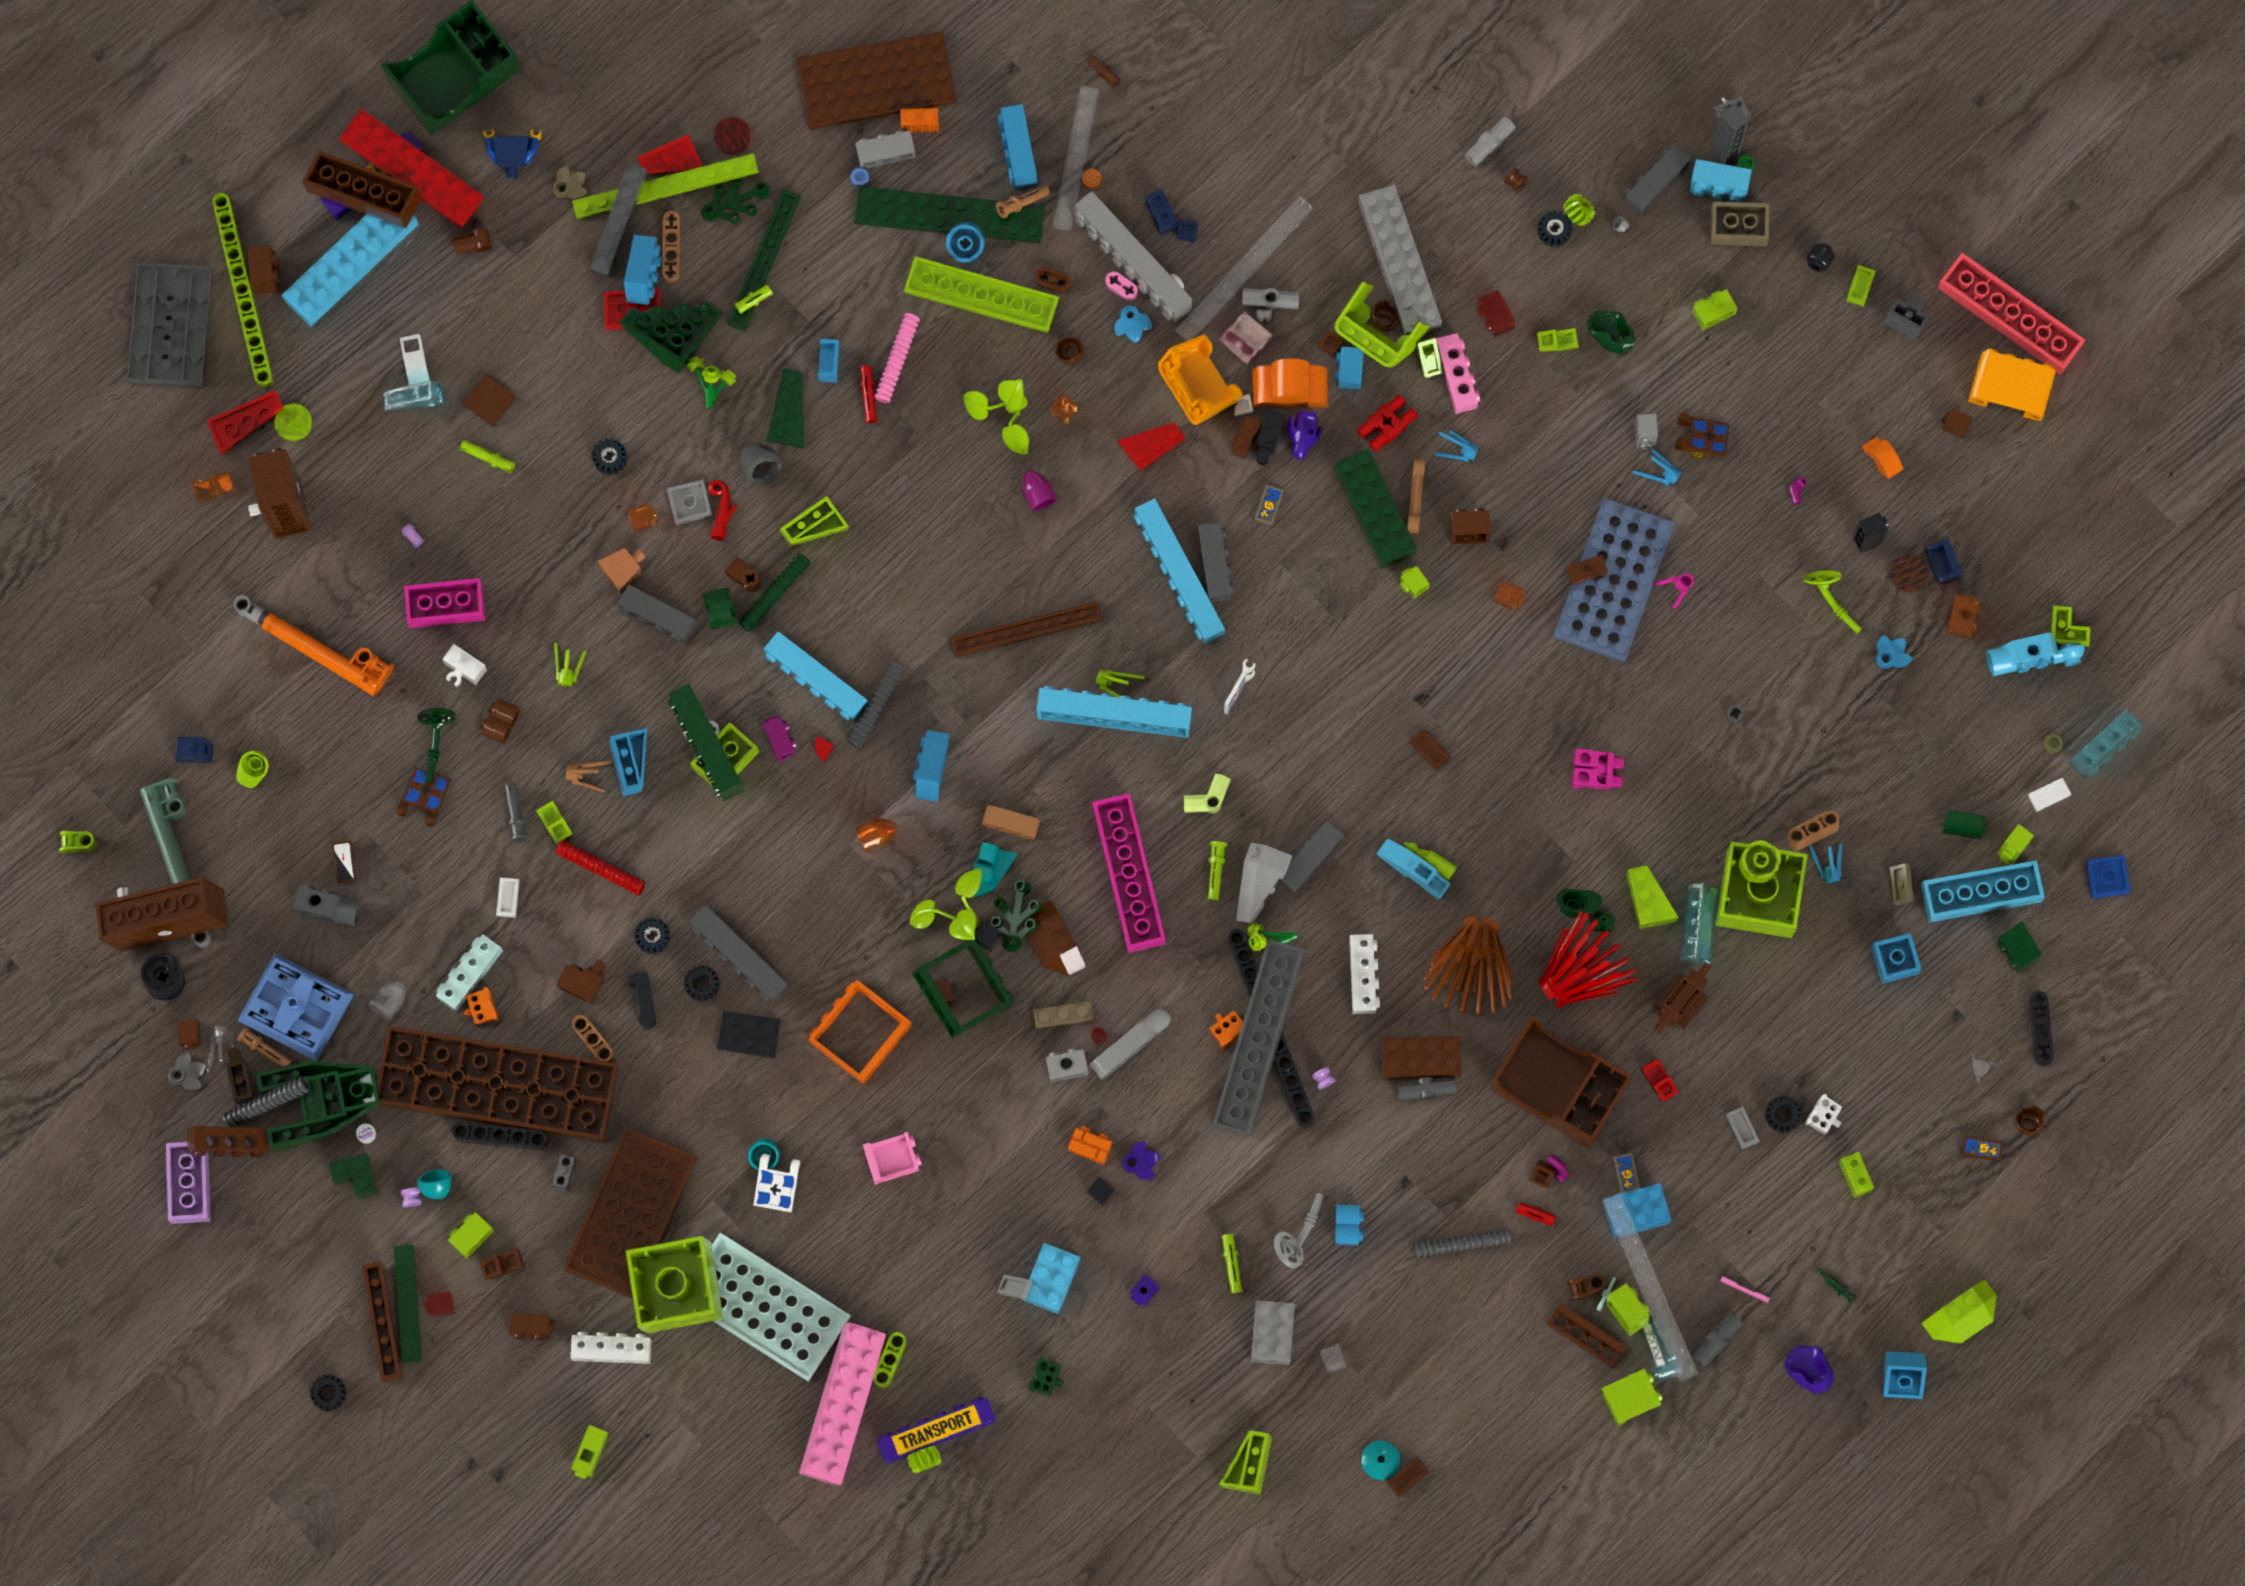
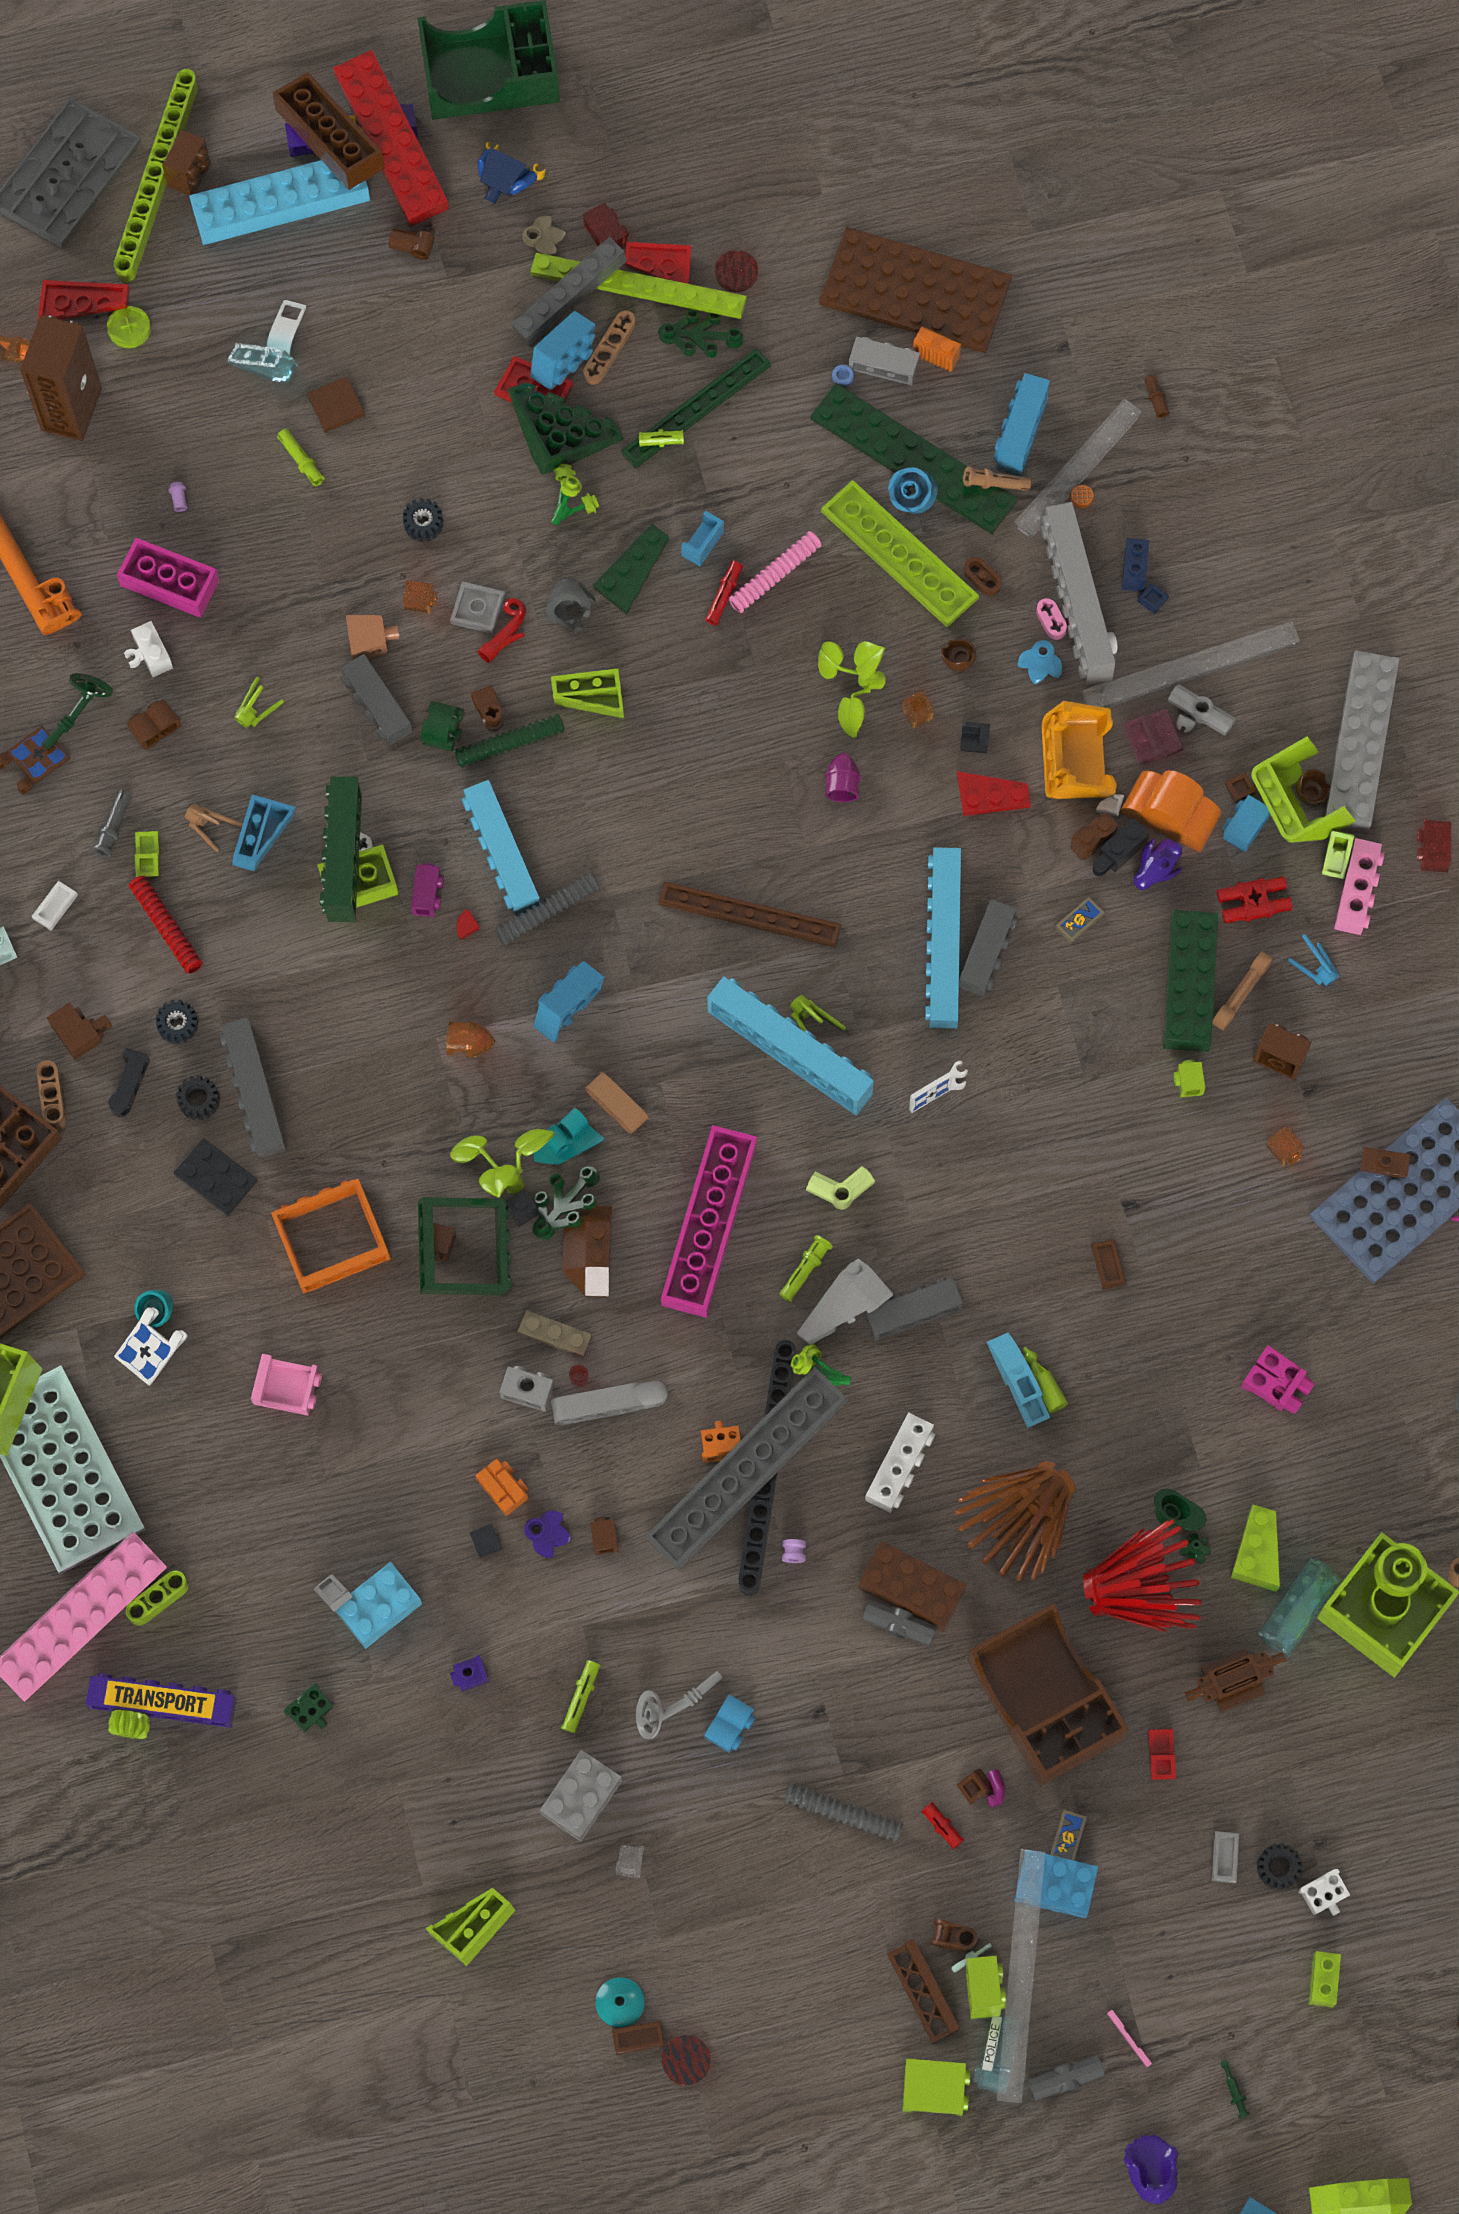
camera: 30 degrees right, 5 degrees down
(614, 154) = (603, 223): none -> clear red brick
(1116, 407) = (975, 737): none -> black panel
(1183, 1141) = (604, 1536): none -> reddish brown brick
(1449, 1474) = (686, 2060): none -> clear red tile

